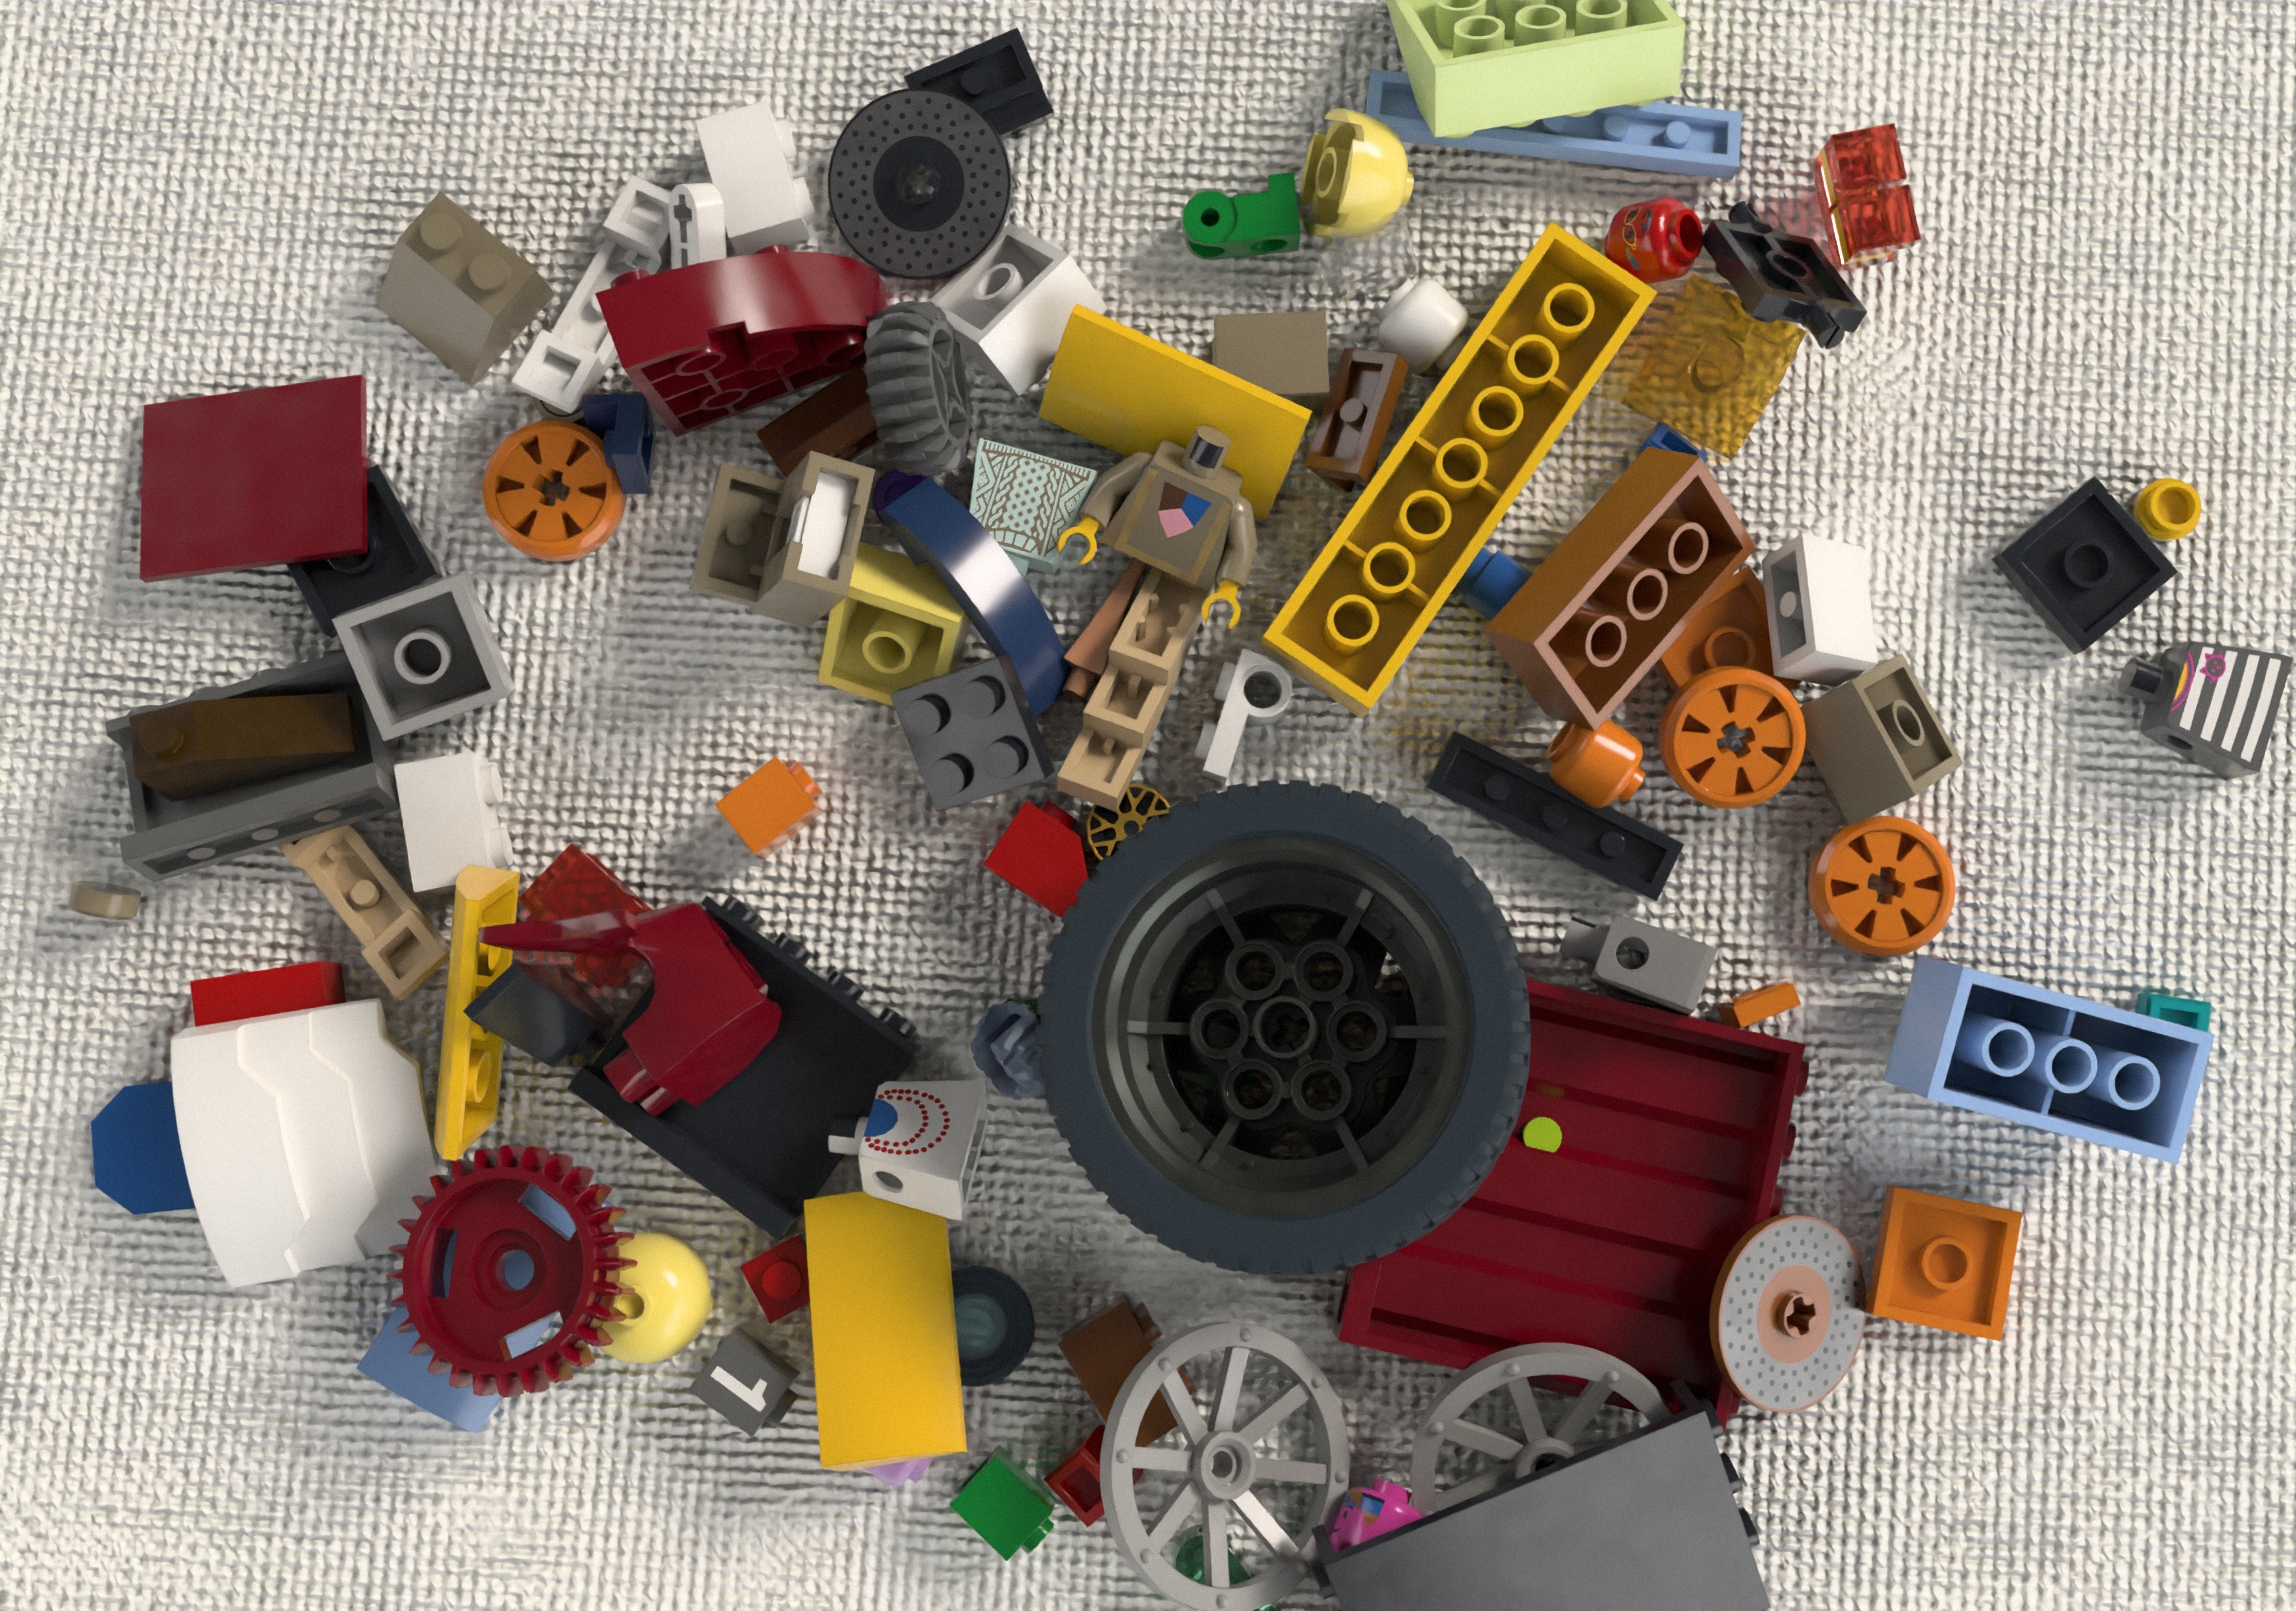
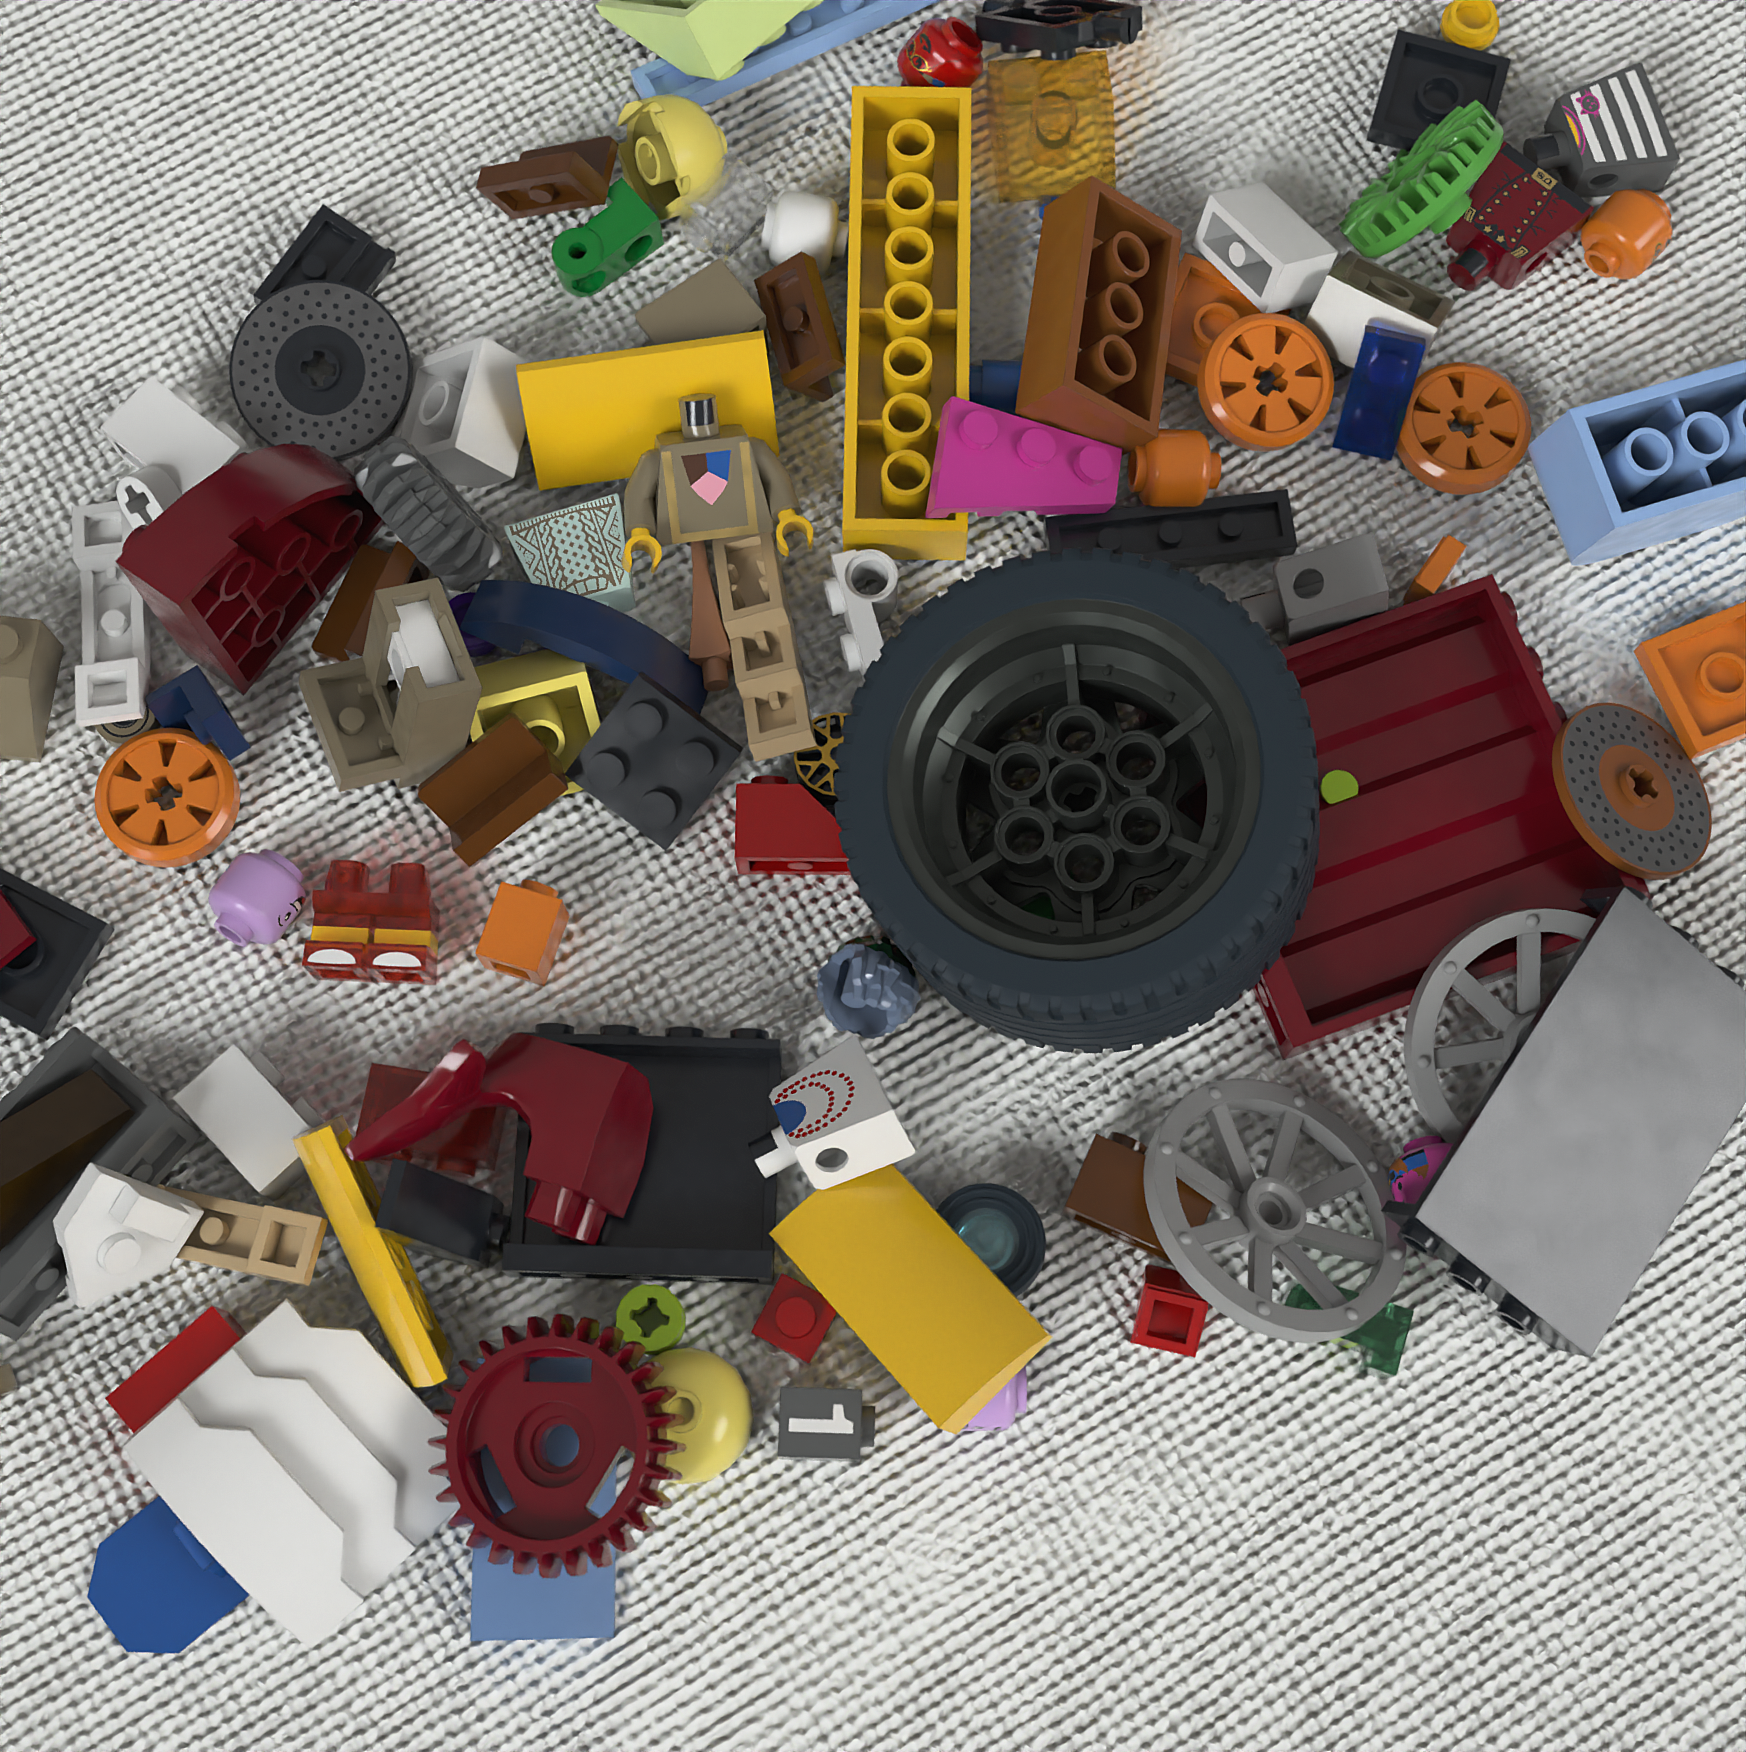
camera: 30 degrees left, 10 degrees down
(281, 853) = (119, 1232): none -> white plate
(424, 655) = (141, 988): light grey brick -> none
(572, 631) = (257, 898): none -> lavender head
(646, 727) = (374, 933): none -> clear red hips
(675, 1194) = (660, 1332): none -> lime wheel
(824, 669) = (493, 787): none -> reddish brown panel
(1005, 1505) = (1114, 1378): green brick -> none
(1235, 131) = (551, 178): none -> reddish brown panel
(1452, 674) = (1009, 463): none -> dark pink wing
(1826, 811) = (1378, 392): none -> clear blue plate
(2006, 650) = (1426, 183): none -> bright green wheel
(2064, 727) = (1514, 223): none -> dark red torso
(2161, 806) = (1626, 234): none -> orange head

